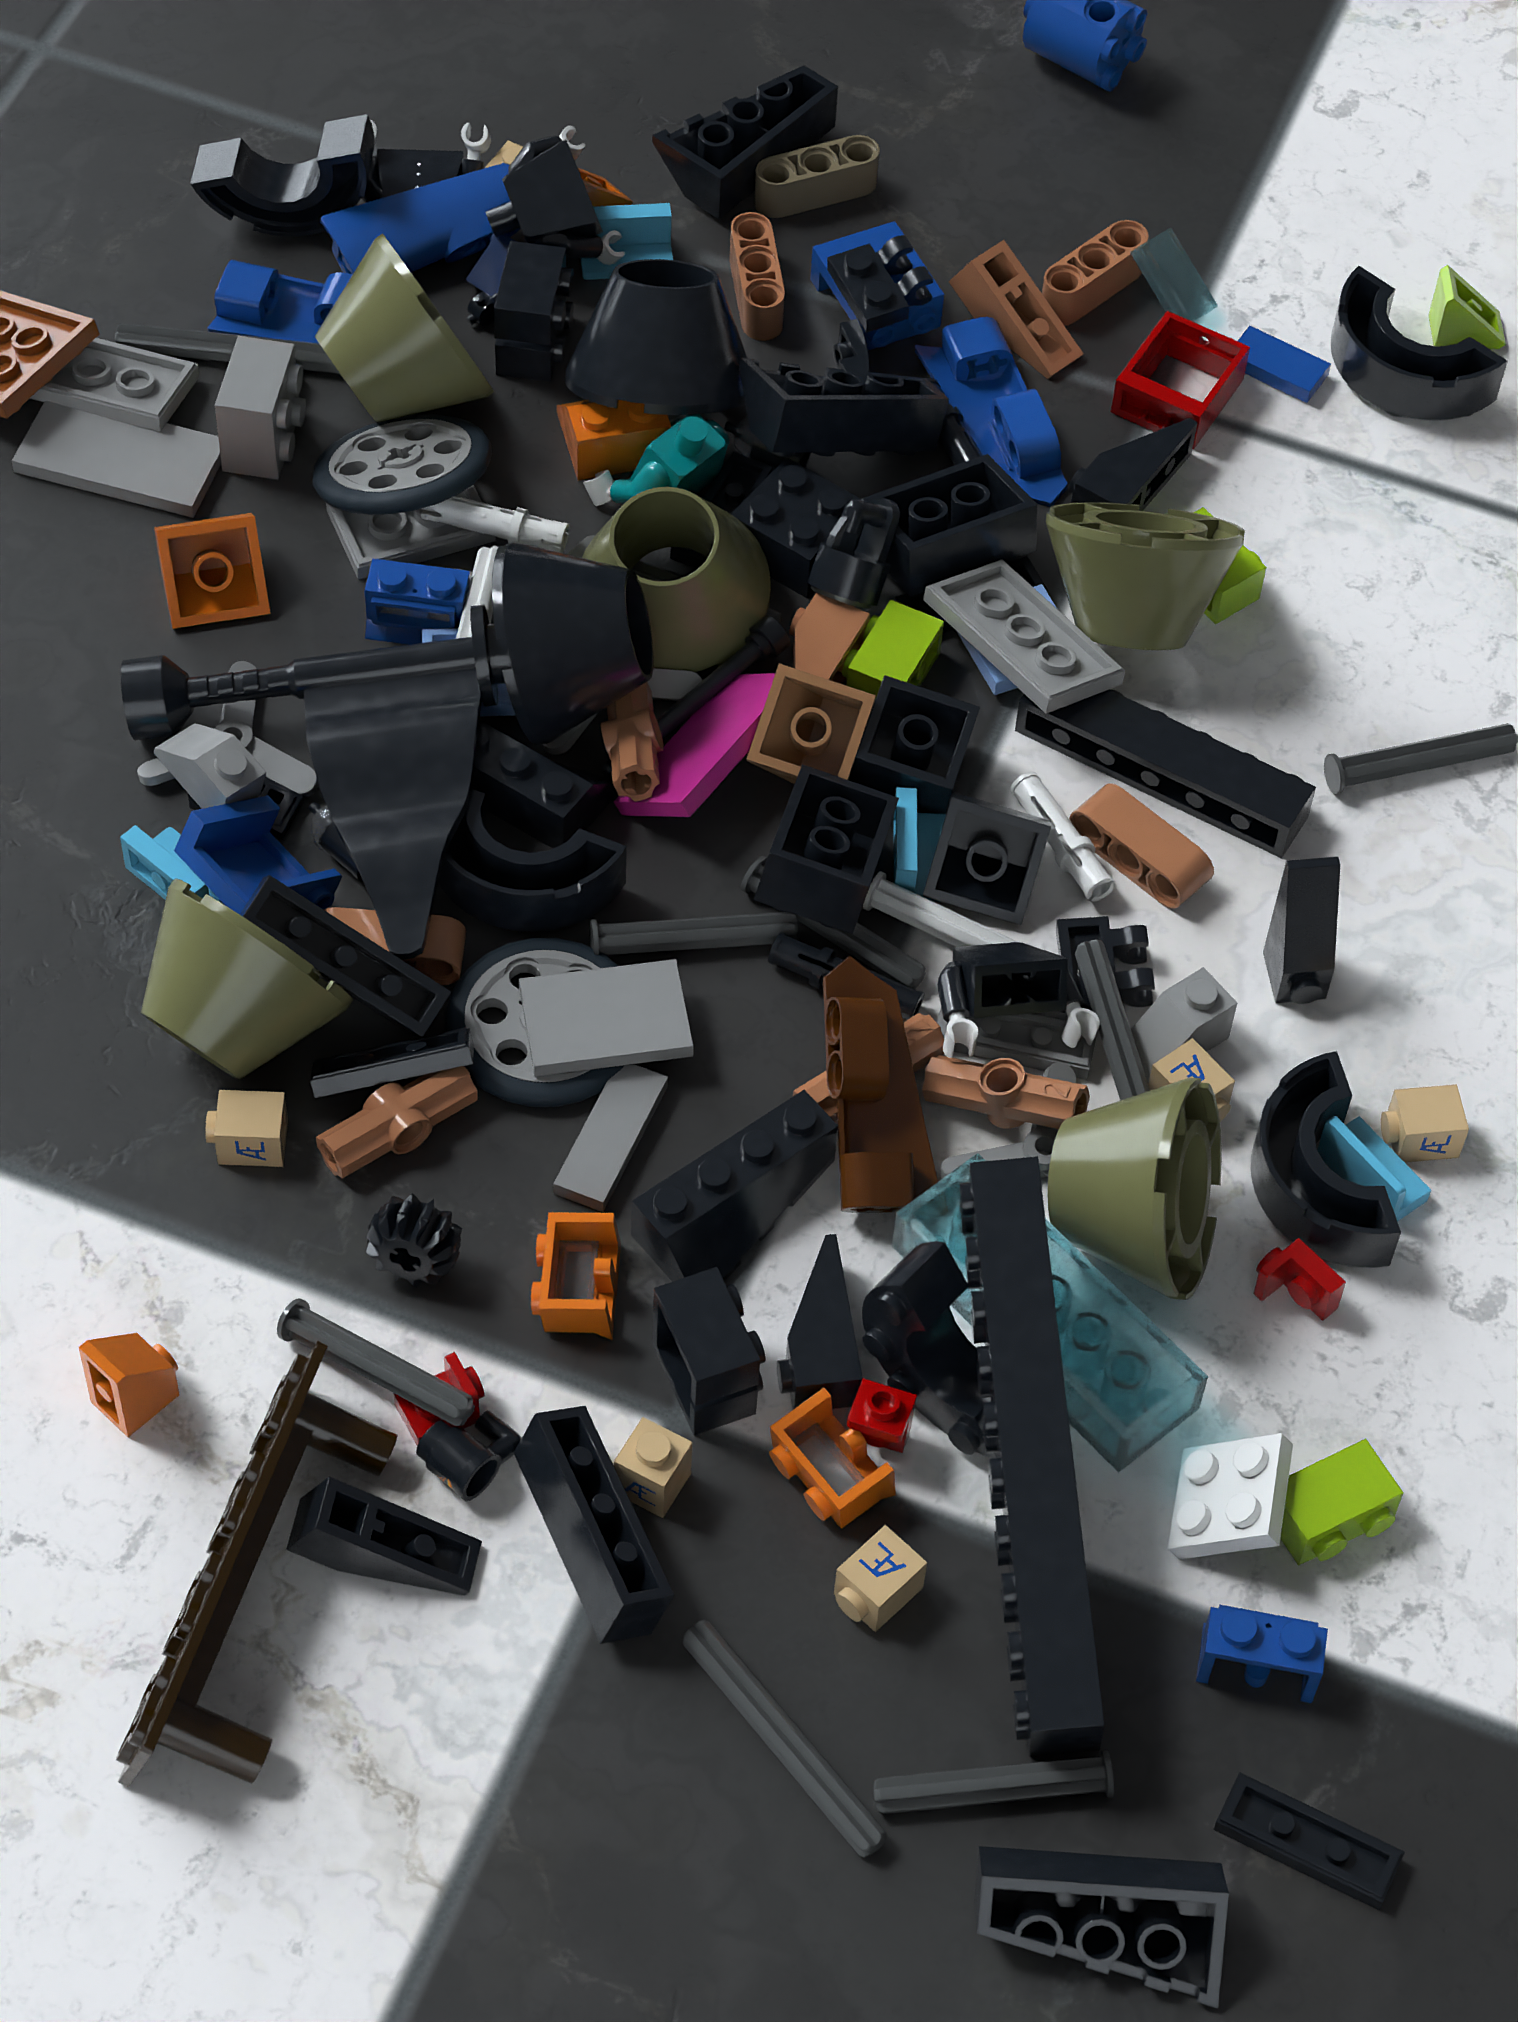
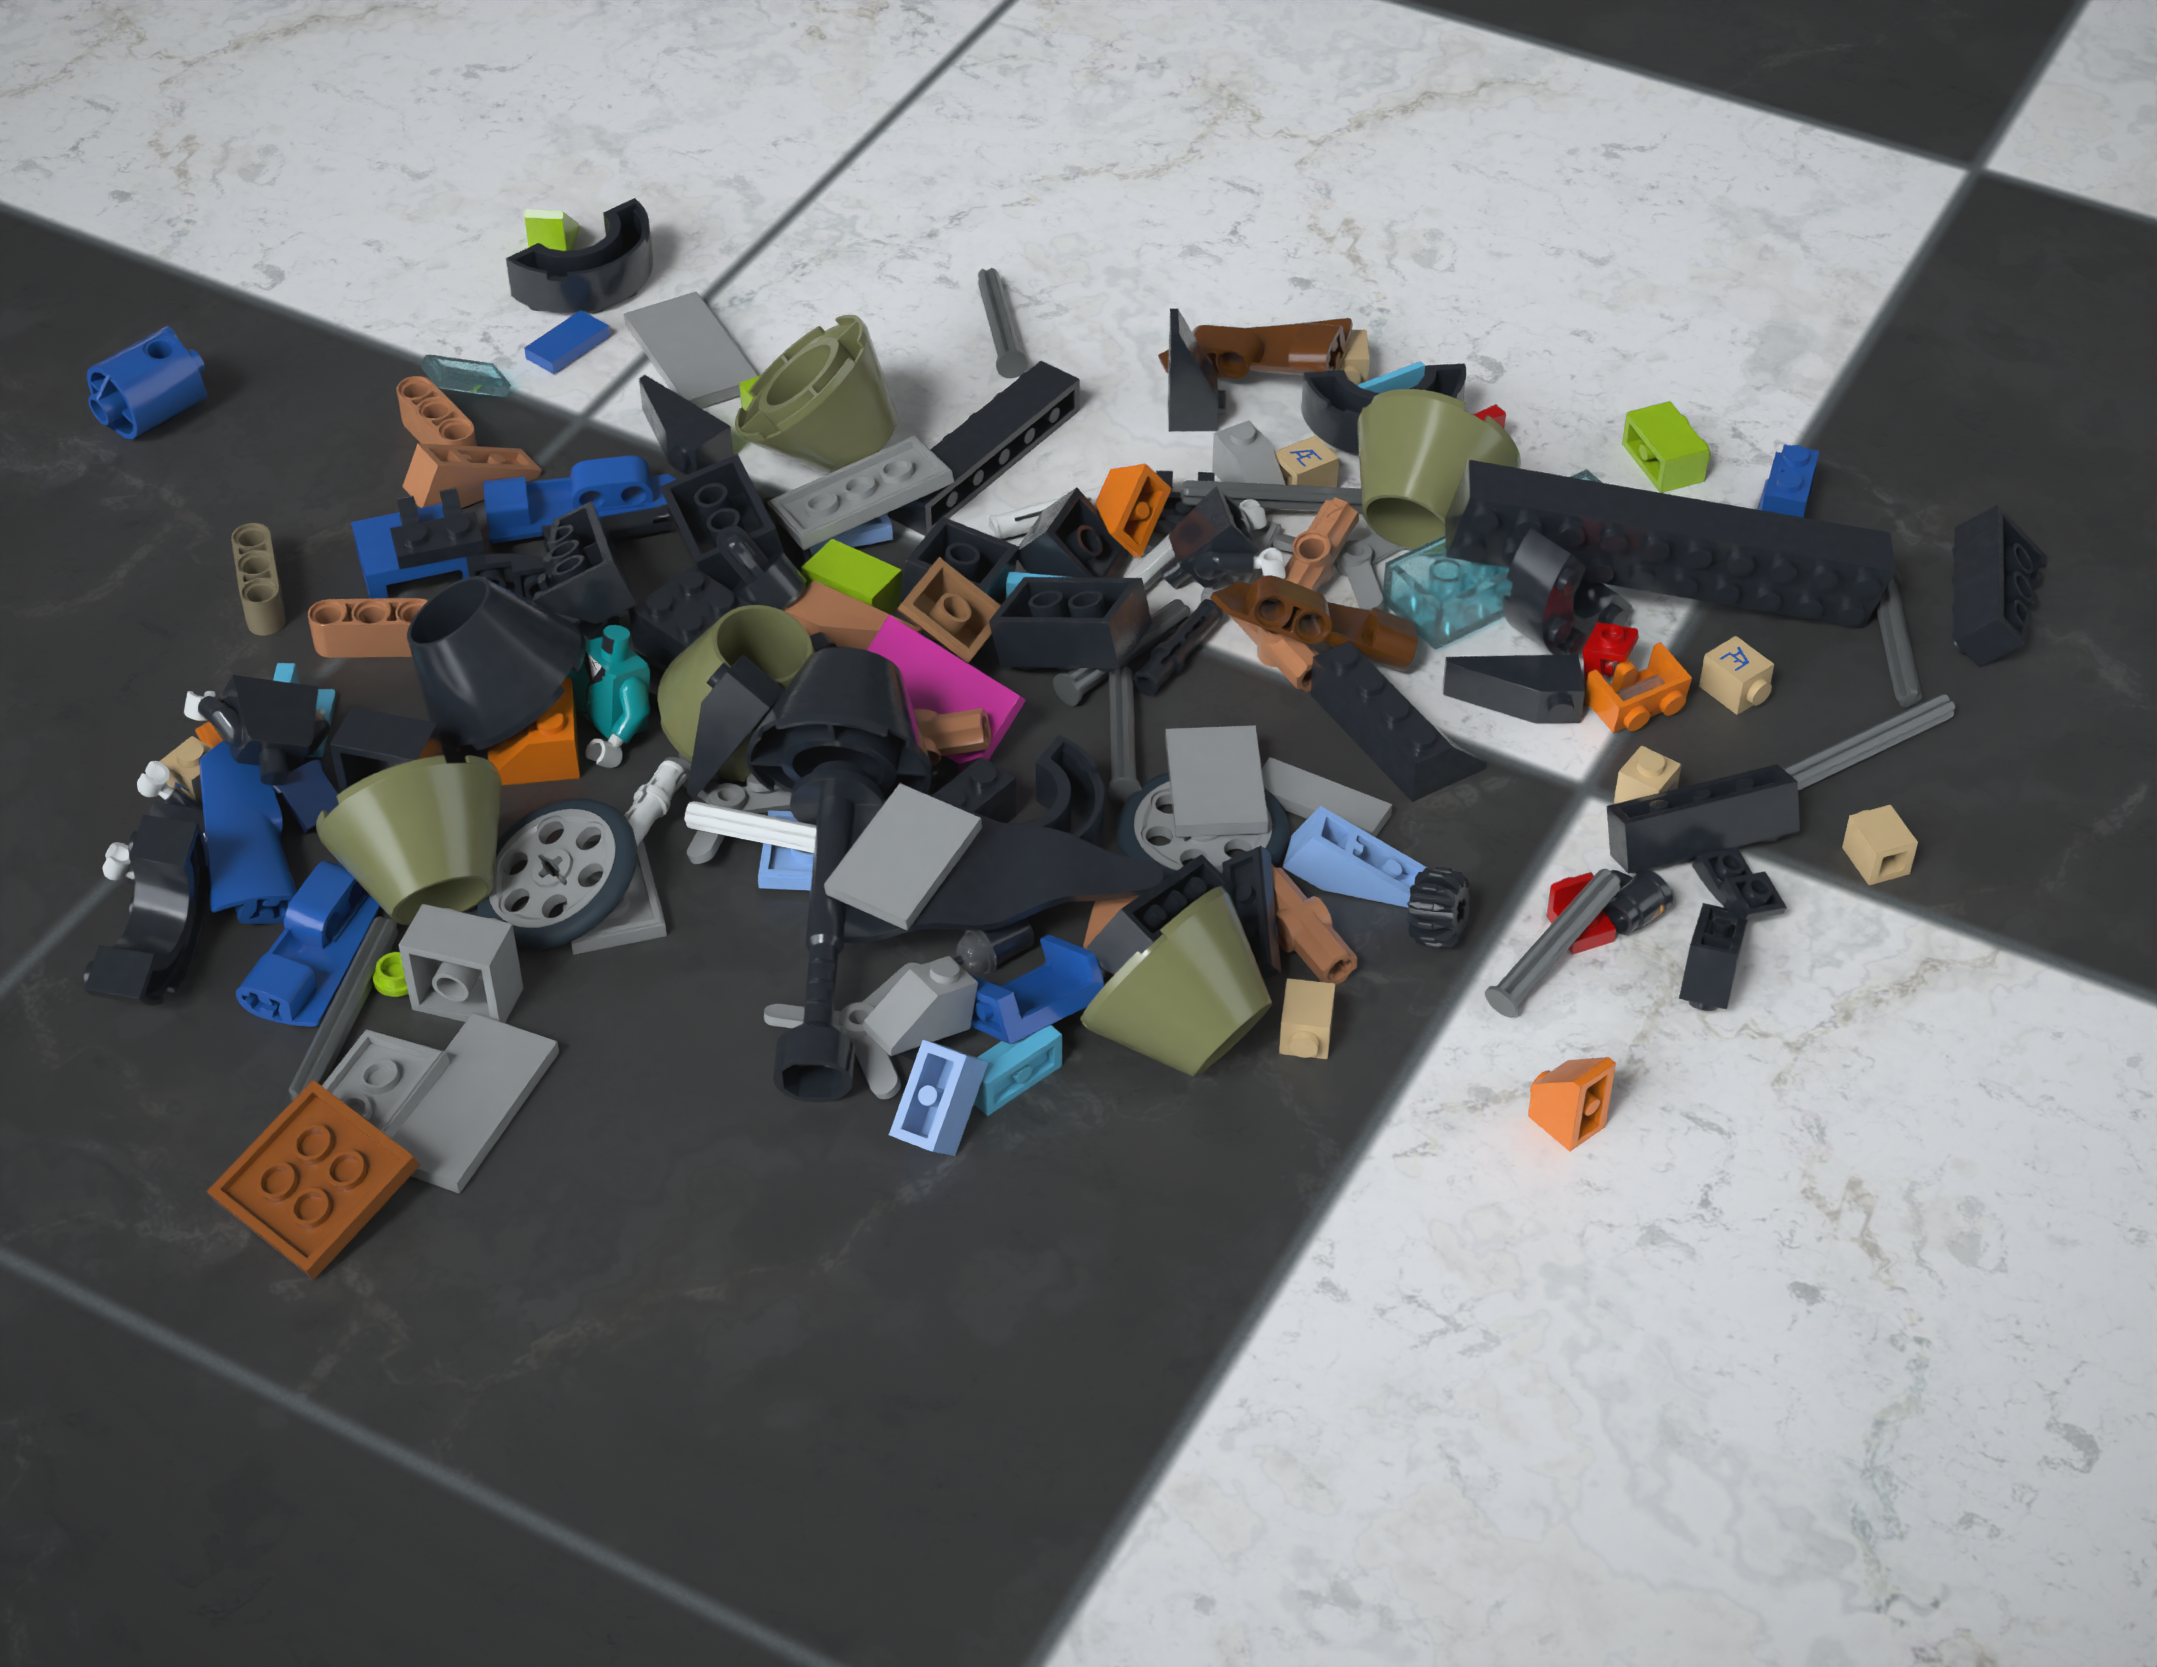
camera: 80 degrees left, 10 degrees down
(94, 796) = (938, 1098): none -> light blue brick
(169, 1705) = (1754, 1033): dark brown piece -> none
(212, 570) = (644, 1024): orange slope -> none
(386, 708) = (903, 856): none -> light grey tile
(412, 598) = (725, 879): blue window -> none
(492, 1170) = (1349, 860): none -> light blue slope
(503, 1575) = (1736, 887): none -> black slope
(578, 1273) = (1465, 825): orange window -> none
(580, 526) = (727, 717): none -> black slope
(586, 1736) = (1879, 844): none -> tan brick
(707, 1350) = (1553, 737): black piece -> none
(719, 154) = (211, 610): black wedge -> none
(1048, 895) = (1131, 505): none -> orange slope
(1143, 846) = (1071, 464): nougat beam -> none
(1159, 406) = (598, 412): red window -> none
(1230, 1496) = (1673, 469): white plate -> none
(1291, 473) = (690, 349): none -> light grey tile
(1309, 1841) = (1920, 499): black tile -> none
(1402, 1024) = (1274, 348): none -> reddish brown panel

